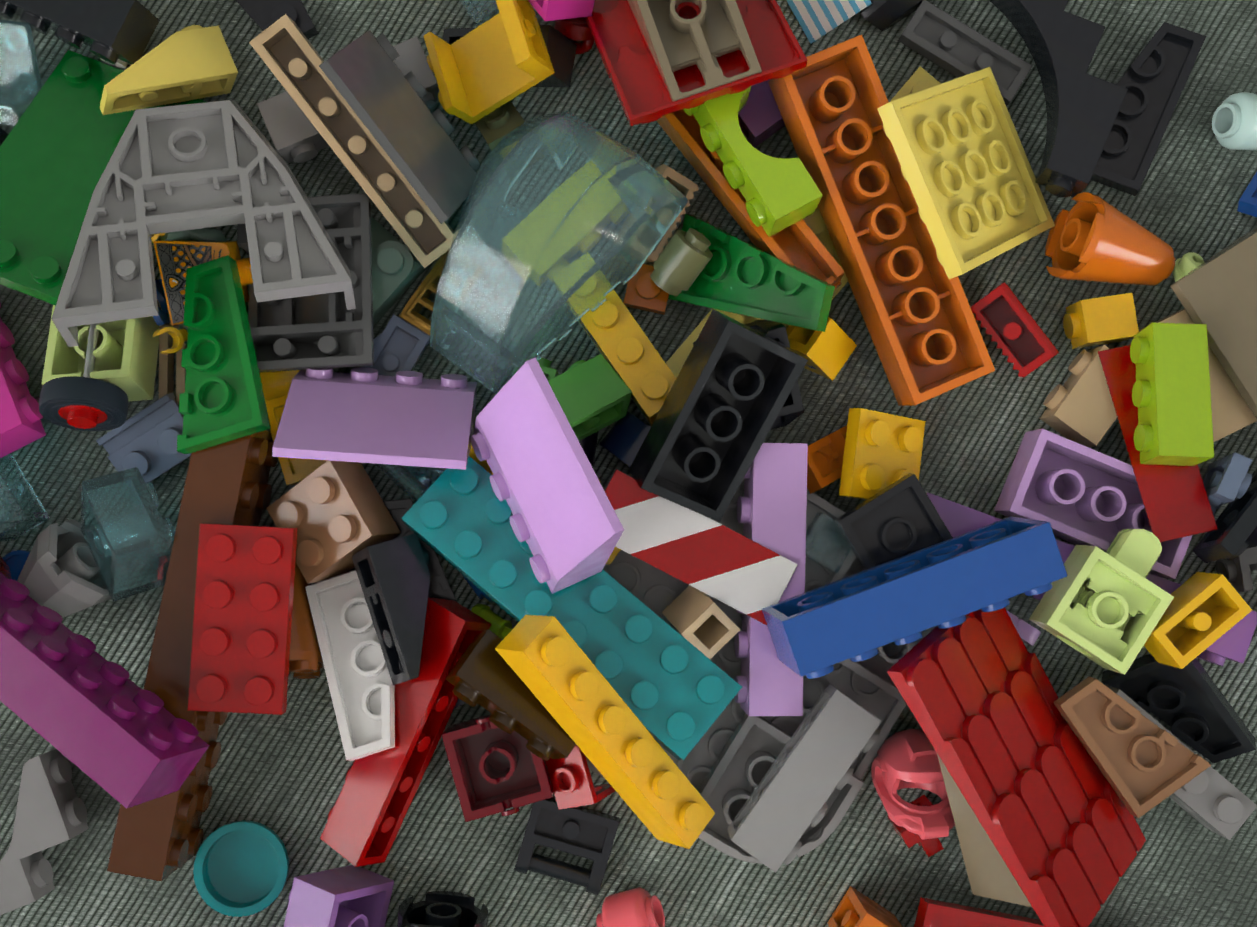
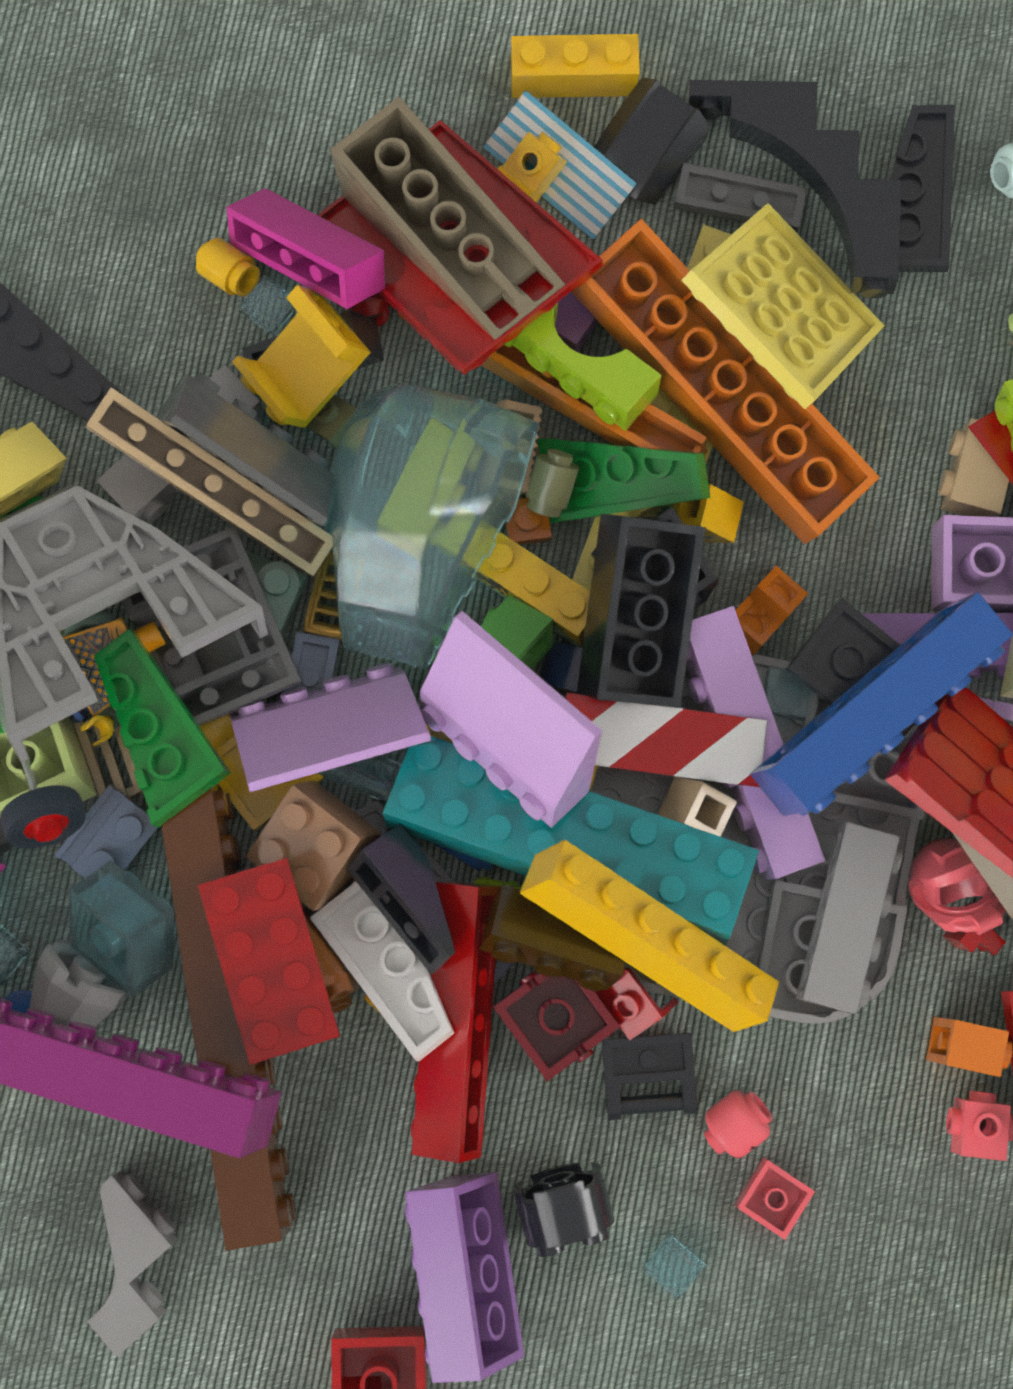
camera: 20 degrees left, 5 degrees down
(241, 868) = (344, 1217): teal piece -> none
(879, 451) = (801, 592): yellow plate -> none
(1014, 330) = (883, 435): red brick -> none
(1101, 320) = (960, 397): yellow brick -> none
(1105, 246) = (938, 328): orange cone -> none

